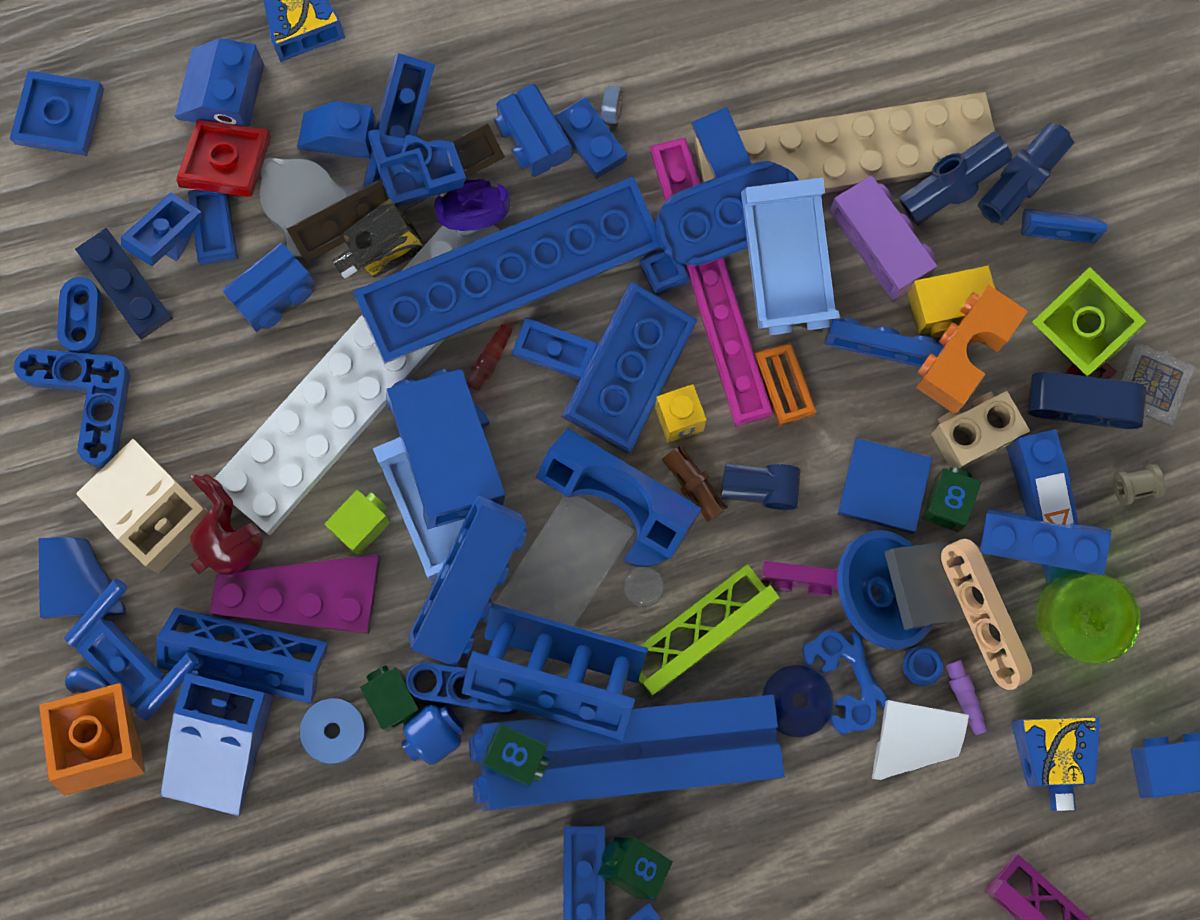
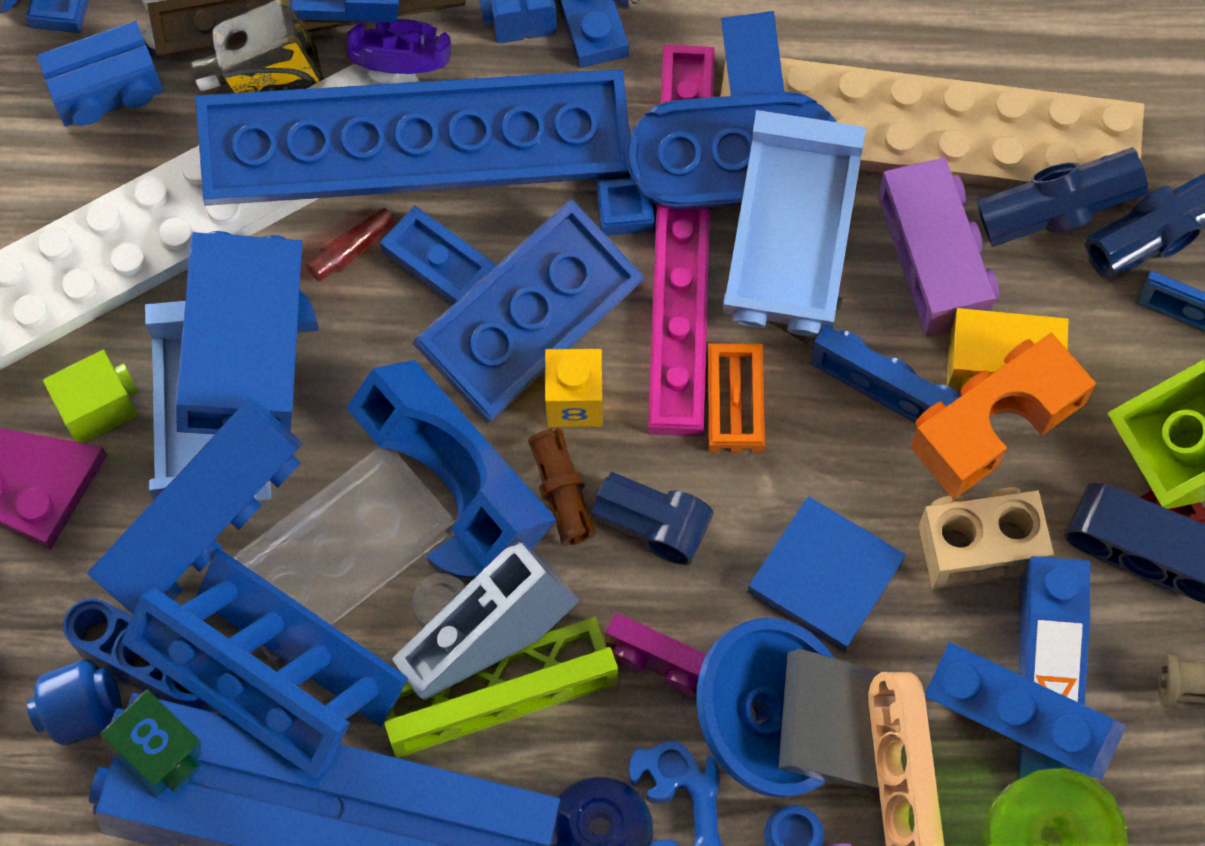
camera: 20 degrees right, 10 degrees down
(389, 697) = (35, 635): dark green brick -> none
(681, 593) = (487, 621): none -> sand blue slope
(951, 499) = (912, 617): dark green brick -> none

